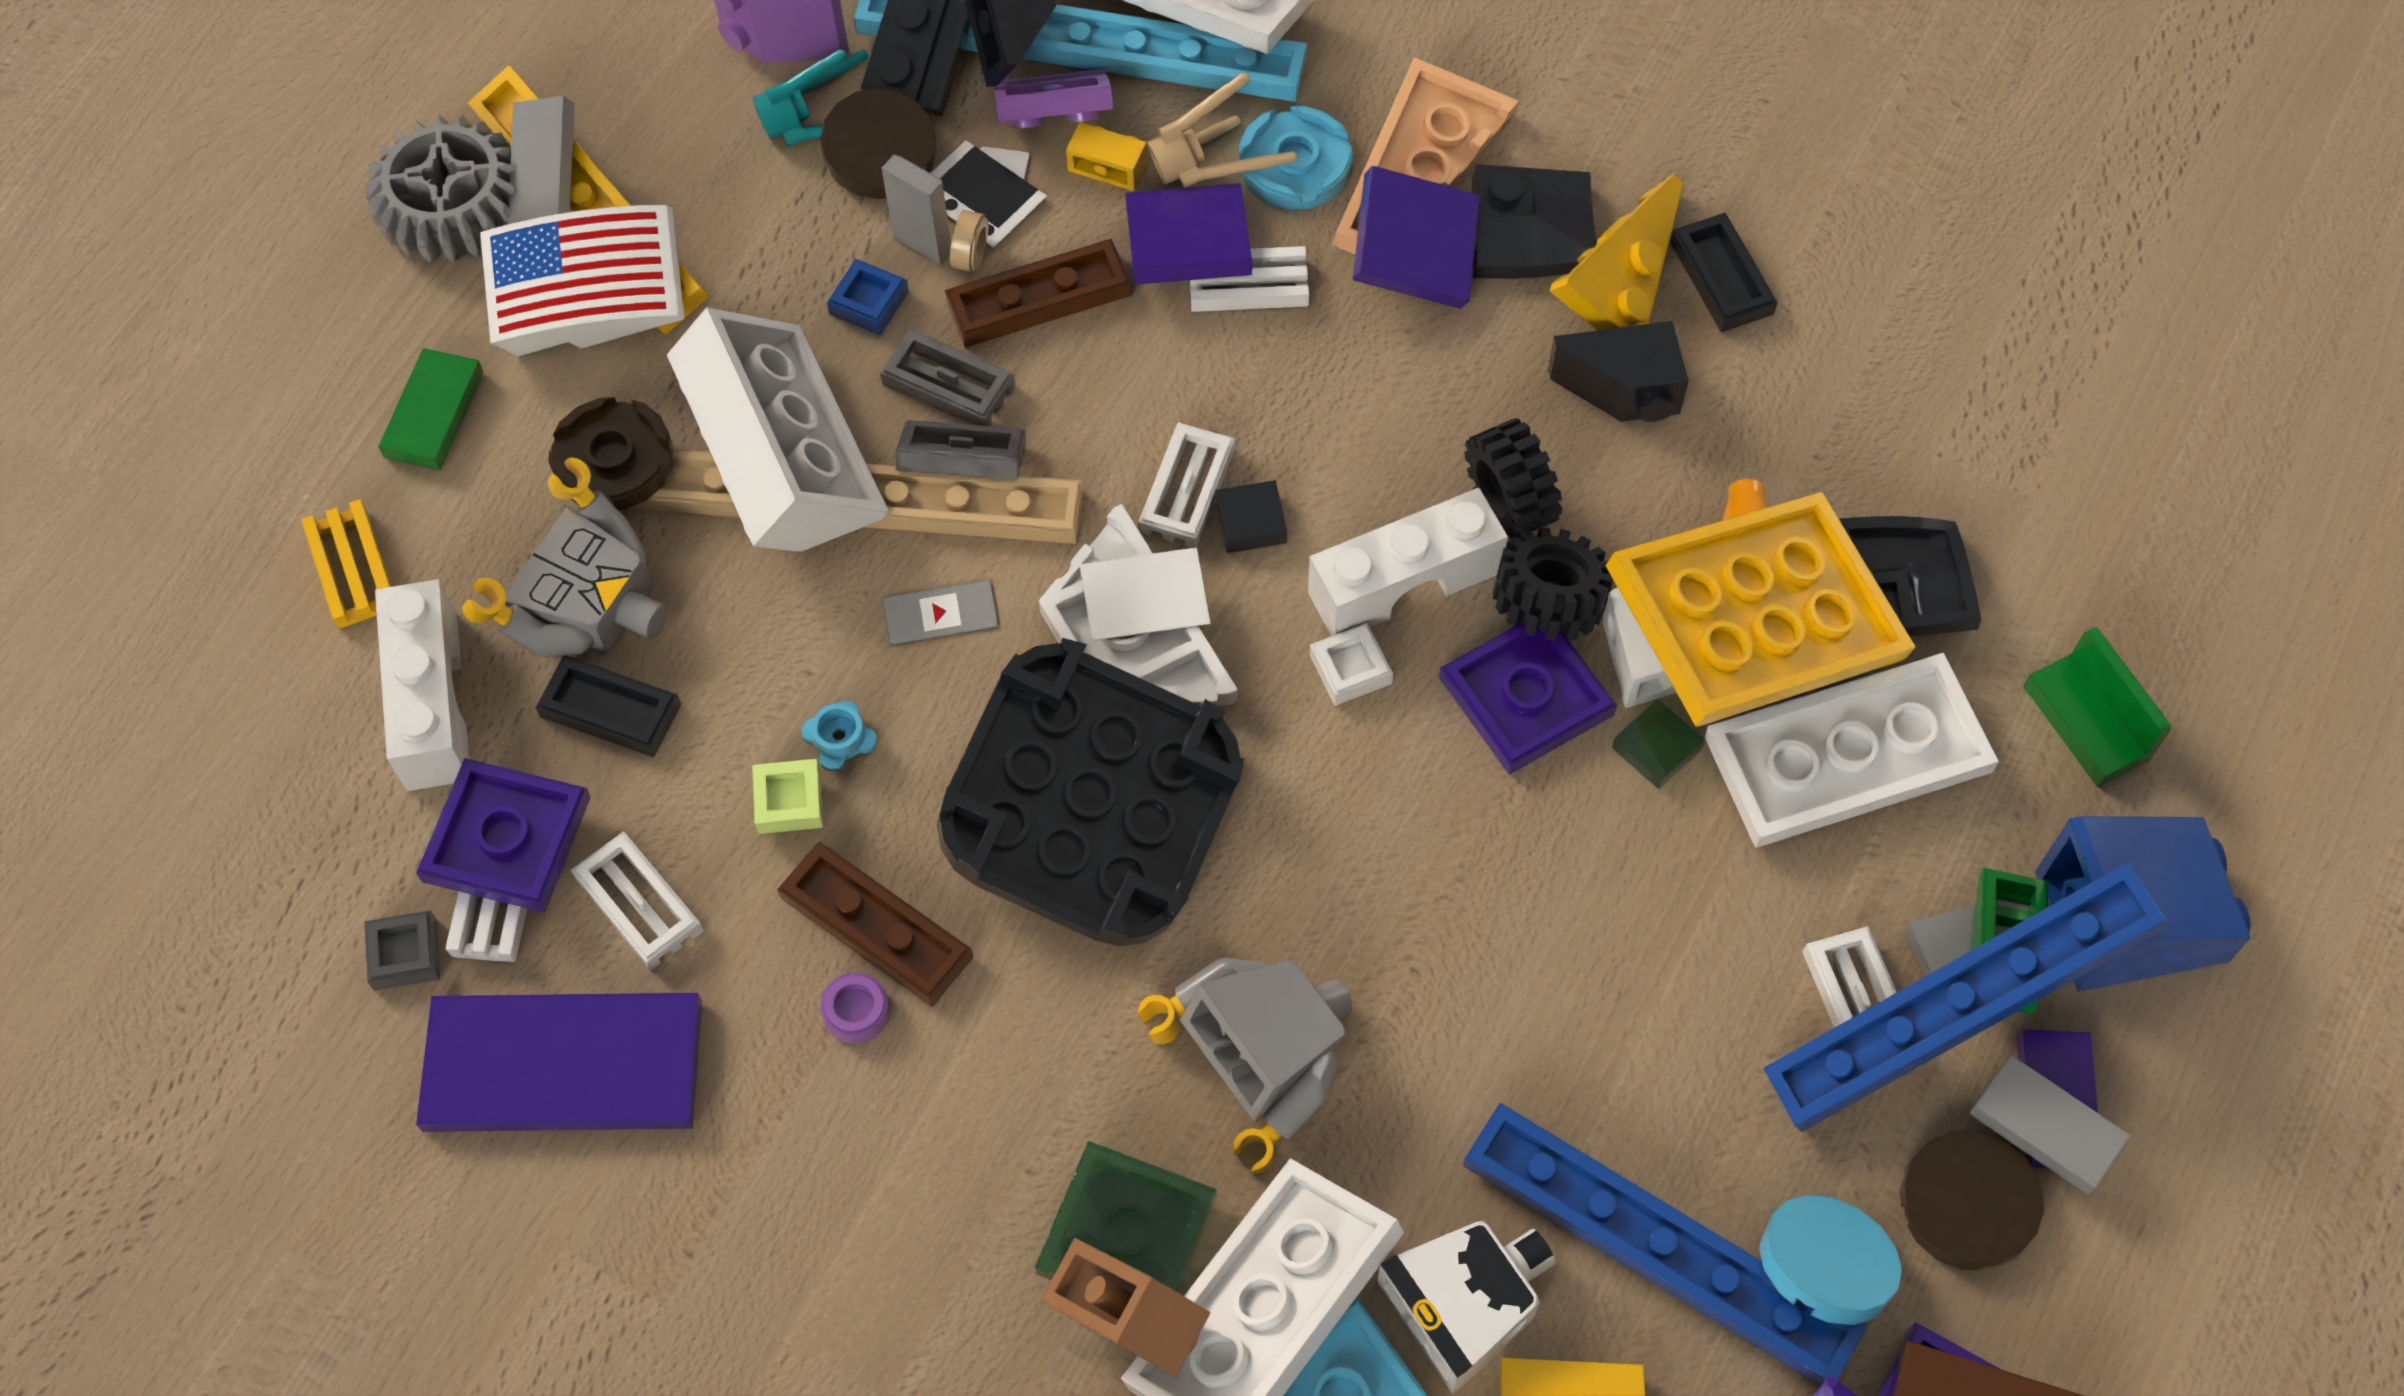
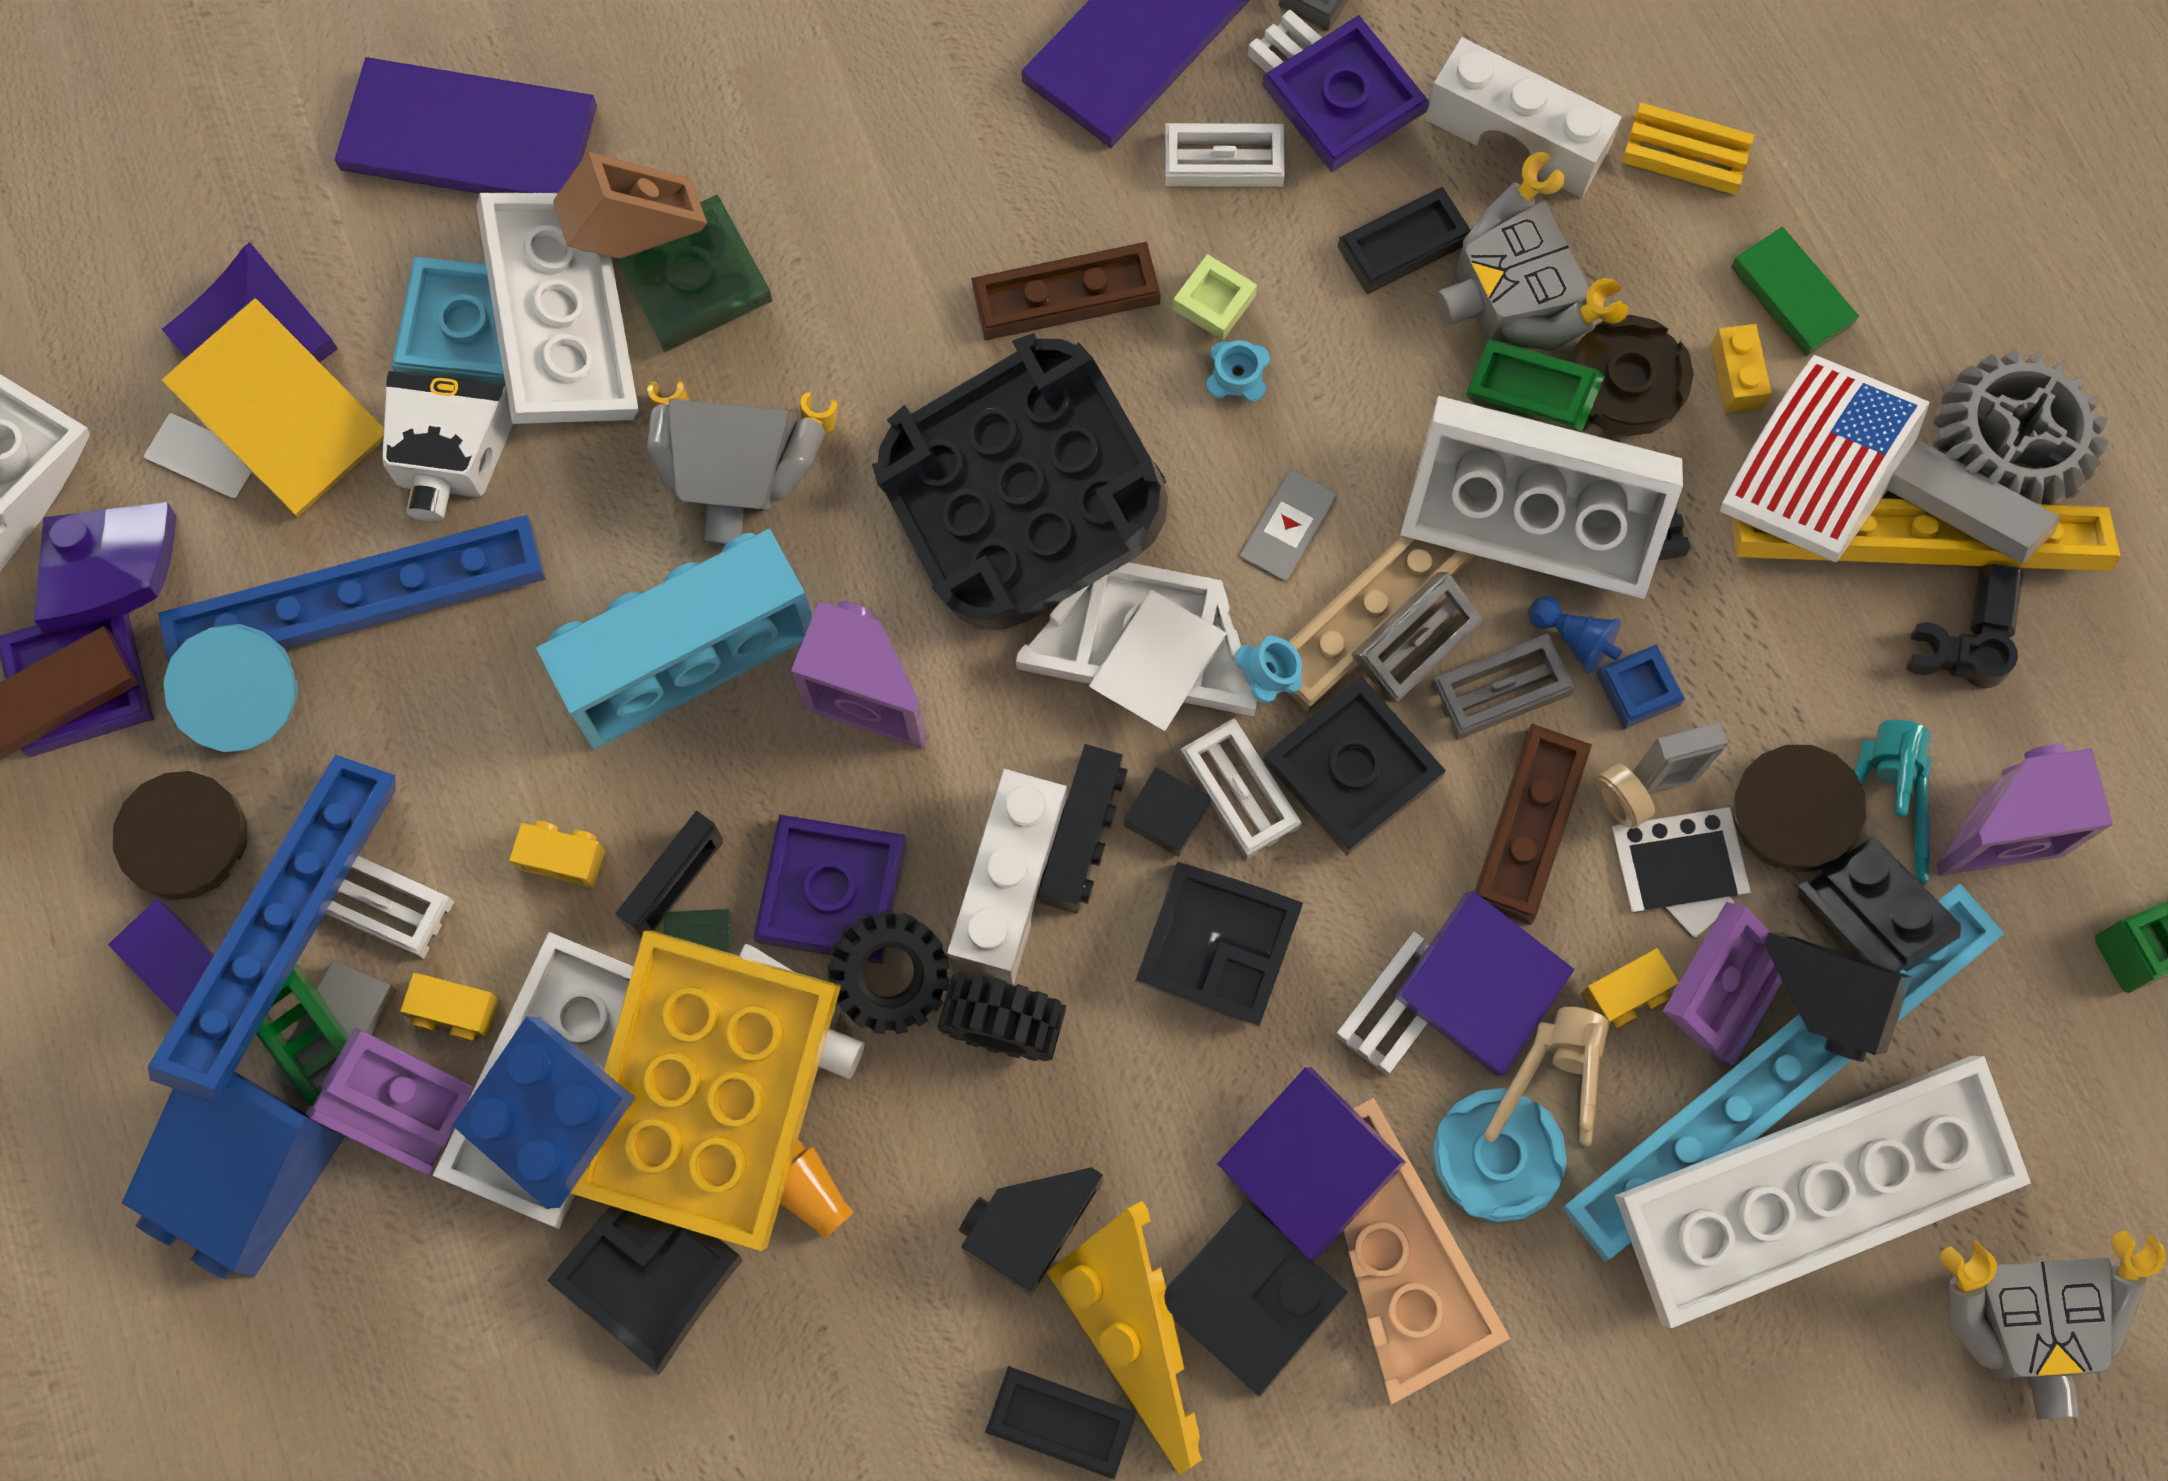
camera: 130 degrees right, 10 degrees up
(536, 396) = (1740, 368): none -> yellow piece
(651, 110) = (1991, 654): none -> black bar
(678, 506) = (1535, 385): none -> green tile
(855, 1008) = (1013, 233): medium lavender tile -> none
(861, 343) = (1587, 637): none -> blue piece
(1081, 509) = (1270, 668): none -> medium azure plate
(1102, 419) = (1354, 765): none -> black plate
(1285, 569) = (1081, 827): none -> black piece
(1317, 408) = (1219, 943): none -> black plate
(1351, 664) = (970, 777): white tile -> none
(1362, 773) = (855, 676): none -> medium lavender slope
(1457, 924) = (677, 638): none -> medium azure brick
(1633, 793) = (670, 875): none -> black tile
(1696, 895) = (558, 855): none -> yellow piece
(1878, 870) = (449, 1005): none -> yellow piece
(1886, 700) = (543, 1112): none -> blue plate
(1985, 829) = (390, 1101): none -> medium lavender plate
(2050, 1125) = (159, 925): light grey tile -> none
(2099, 709) = (405, 1305): green panel -> none

